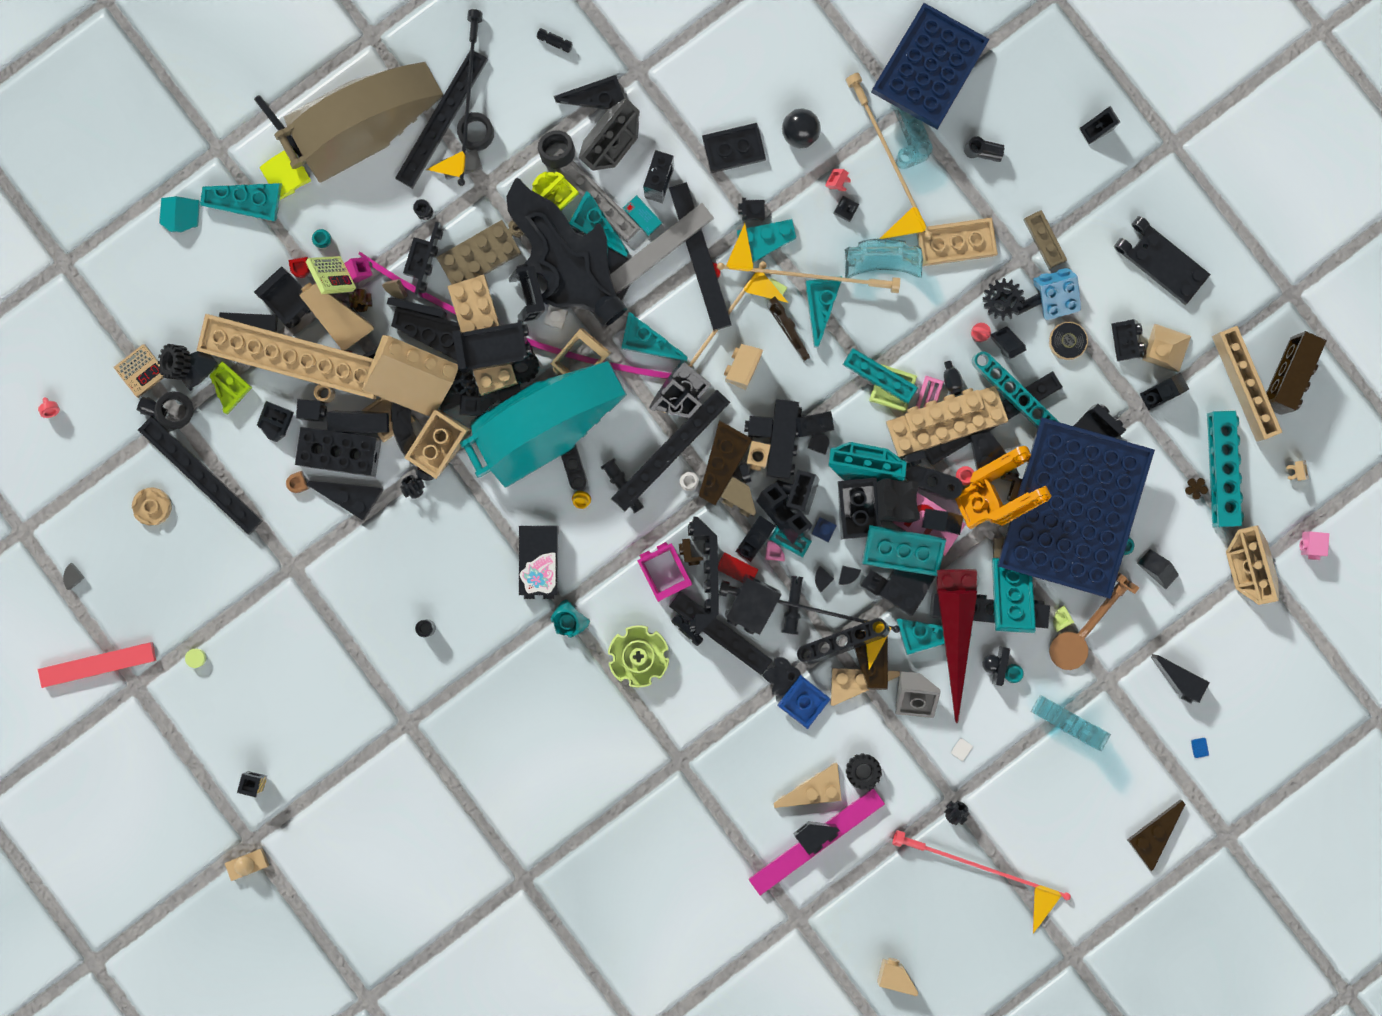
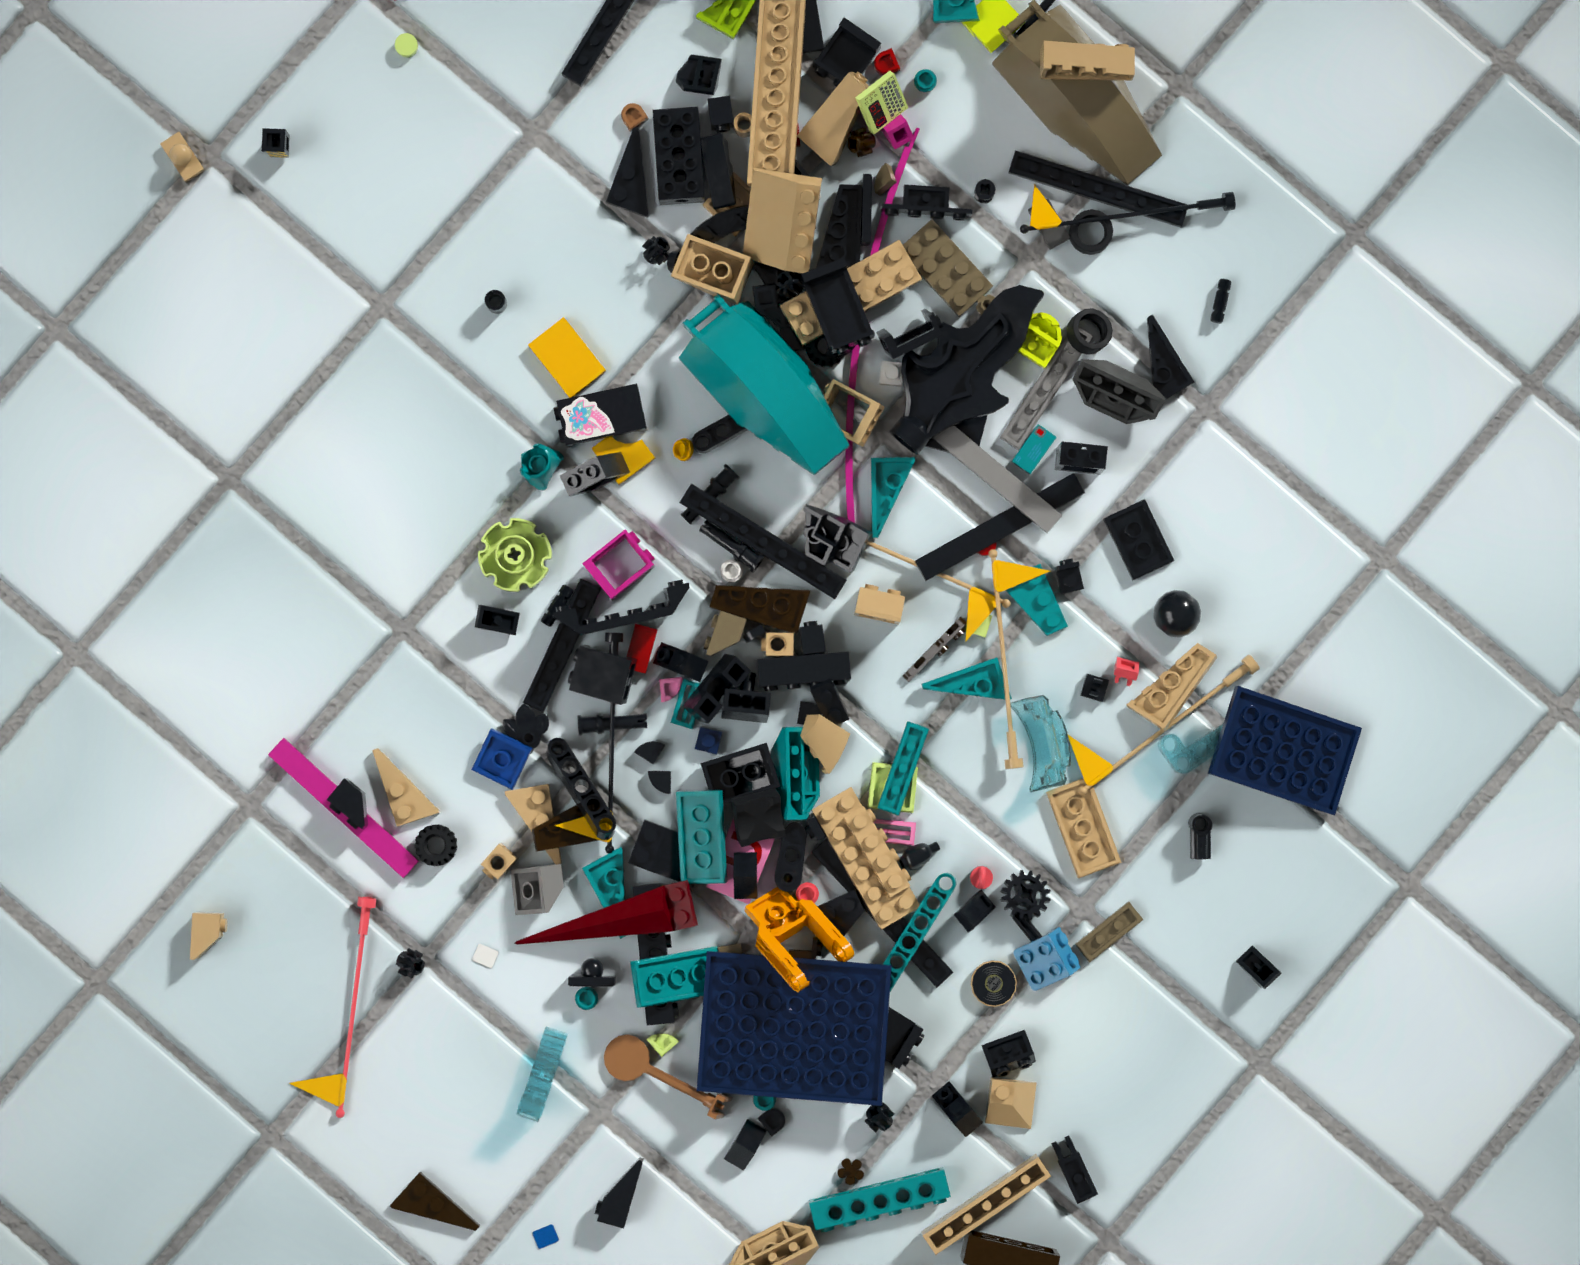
camera: 75 degrees right, 0 degrees up
(334, 97) = (1086, 61): none -> tan wedge
(484, 579) = (567, 357): none -> yellow tile
(578, 550) = (635, 454): none -> yellow tile
(586, 575) = (594, 474): none -> black window
(588, 215) = (1019, 388): teal wing -> none
(675, 470) = (740, 551): none -> black pin
(685, 549) = (650, 583): dark brown bracket -> none
(689, 682) = (496, 620): none -> black slope
(844, 434) = (824, 740): none -> tan slope
(860, 145) = (1173, 688): none -> tan wing
(873, 582) = (658, 812): black tile -> none
(880, 718) = (503, 852): none -> tan brick
(1143, 542) = (772, 1120): none -> black tile
(1160, 455) = (879, 1117): none -> black gear
(1163, 262) = (1112, 1079): black hinge -> none
(1233, 307) = (1075, 1172): none -> black hinge

